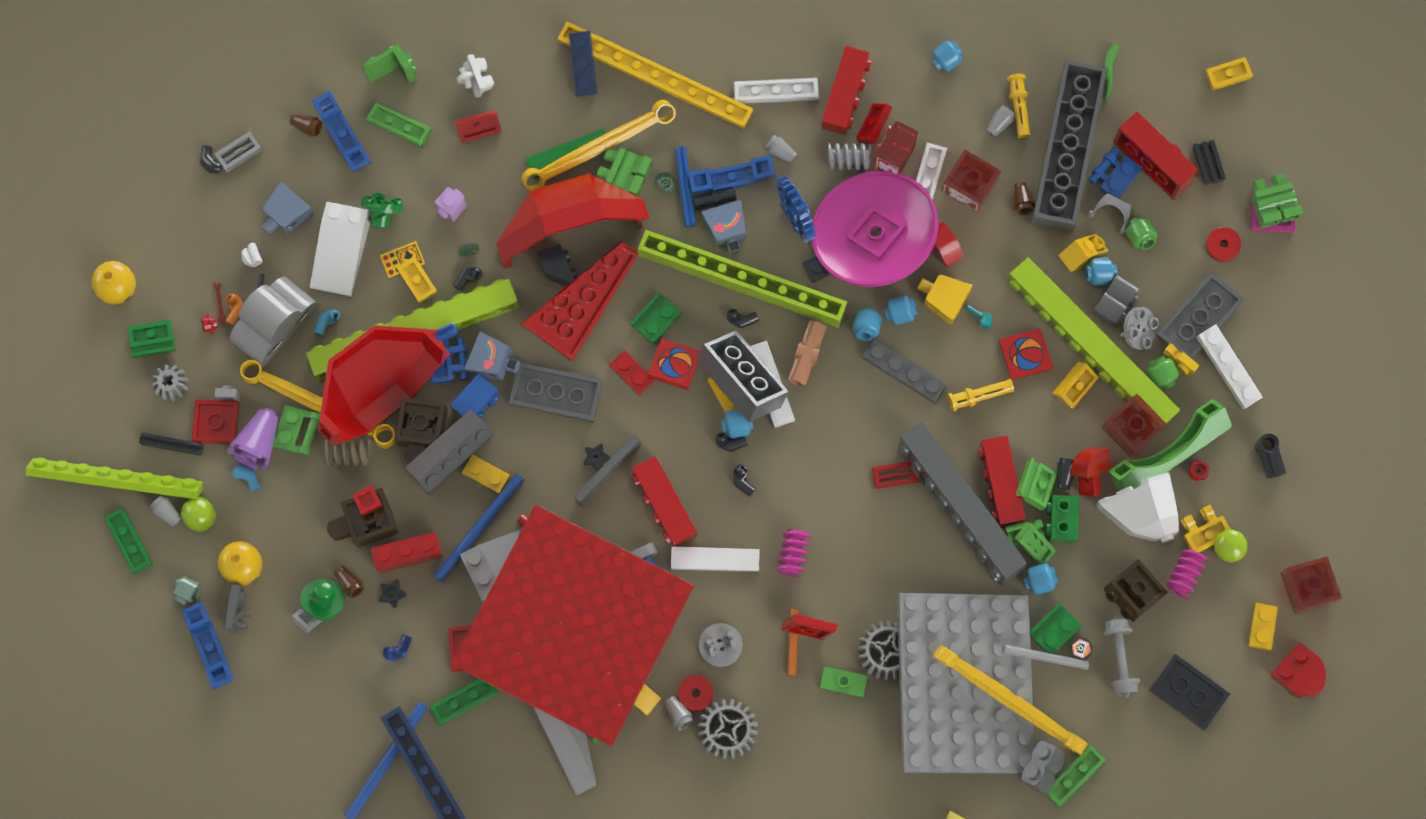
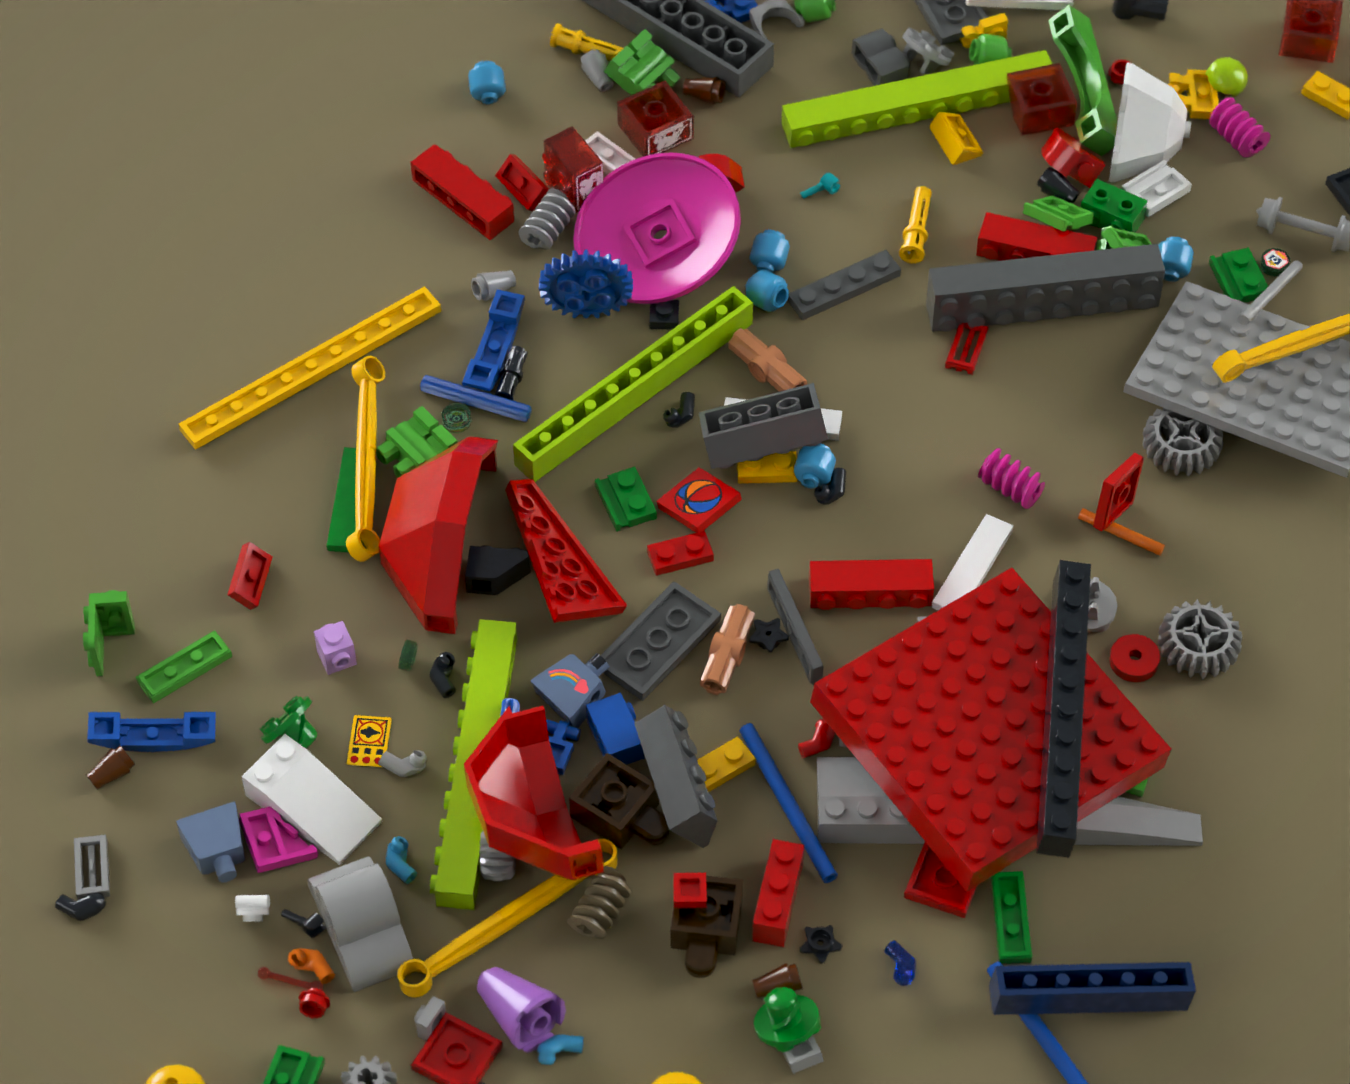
camera: 65 degrees left, 20 degrees down
(290, 429) = (521, 962): bright green plate -> none
(302, 242) = (273, 841): none -> dark pink wing
(392, 289) = (404, 767): none -> light grey arm
(416, 280) = (411, 730): yellow plate -> none
(472, 77) = (180, 551): white hips -> none
(570, 437) = (727, 649): none -> nougat piece
(583, 63) = (246, 429): dark blue plate -> none
(593, 665) = (1064, 710): none -> black brick
(678, 714) = (1152, 684): light grey cone -> none
(726, 225) = (554, 374): sand blue torso -> none
(740, 480) = (888, 499): black arm -> none
(776, 90) = (414, 259): white tile -> none
(843, 682) = (1198, 501): bright green plate -> none
(945, 296) = (780, 205): yellow torso -> none
(1010, 152) = (641, 65): none -> bright green hips
(1025, 354) = (892, 165): tile -> none
(1082, 251) = (805, 61): yellow slope -> none
(1100, 271) = (837, 55): dark azure head -> none
(1101, 540) = (1159, 186): none -> white plate
(1134, 591) = (1234, 182): dark brown plate -> none

